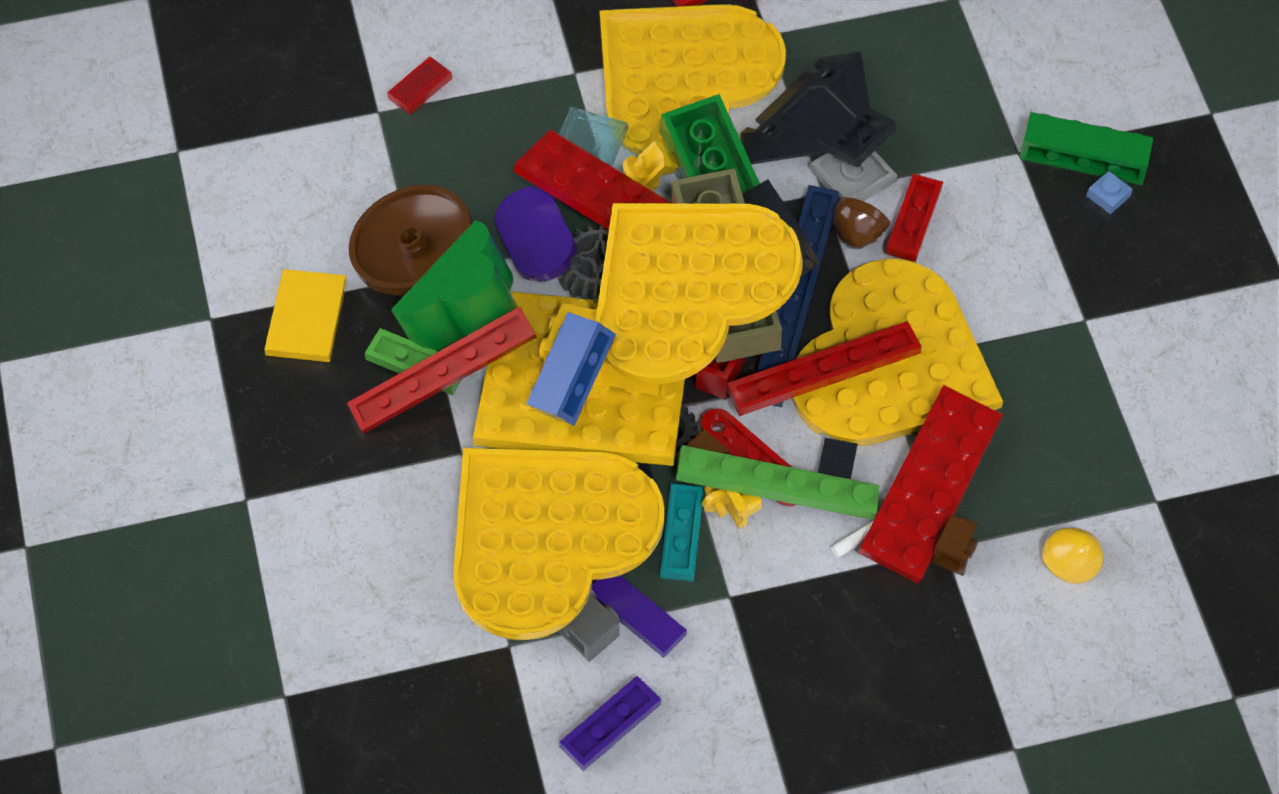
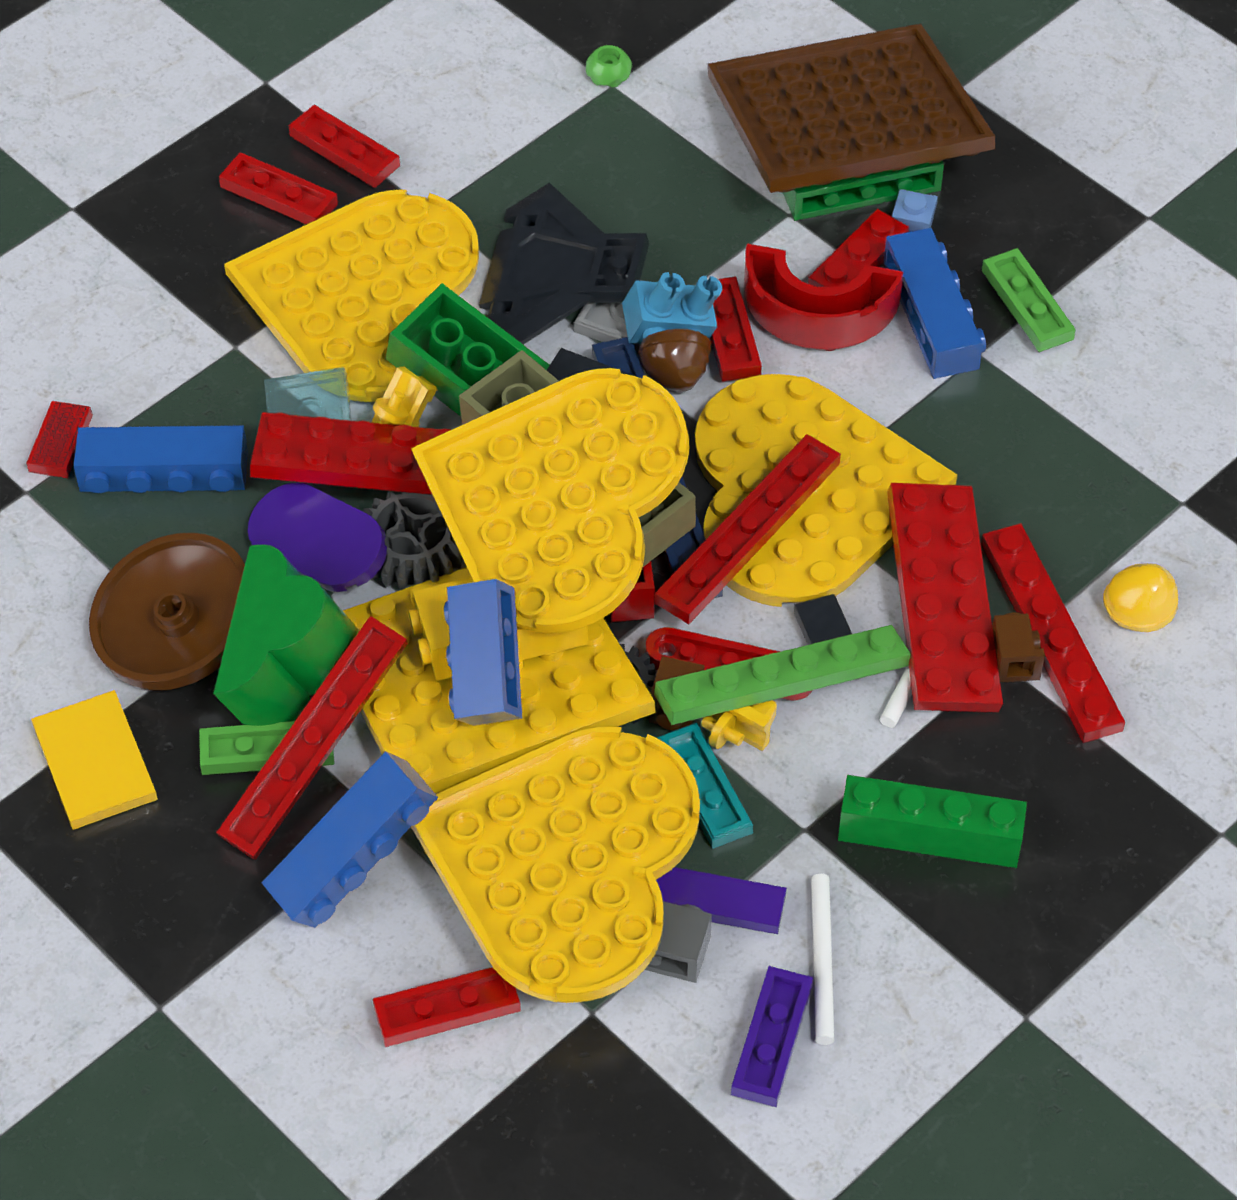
camera: 30 degrees left, 5 degrees down
(413, 591) = (444, 1006): none -> red plate
(417, 451) = (350, 840): none -> blue brick
(470, 129) = (161, 458): none -> blue brick
(680, 690) = (822, 959): none -> white bar
(813, 635) = (932, 821): none -> green brick
(876, 185) = (670, 305): none -> dark azure brick
(983, 240) = (818, 315): none -> red brick
(993, 547) = (1065, 653): none -> red plate
(1045, 207) = (862, 247): none -> red plate
(1072, 267) = (934, 303): none -> blue brick
(1107, 93) = (849, 108): none -> reddish brown plate
(1145, 297) = (1028, 300): none -> bright green plate

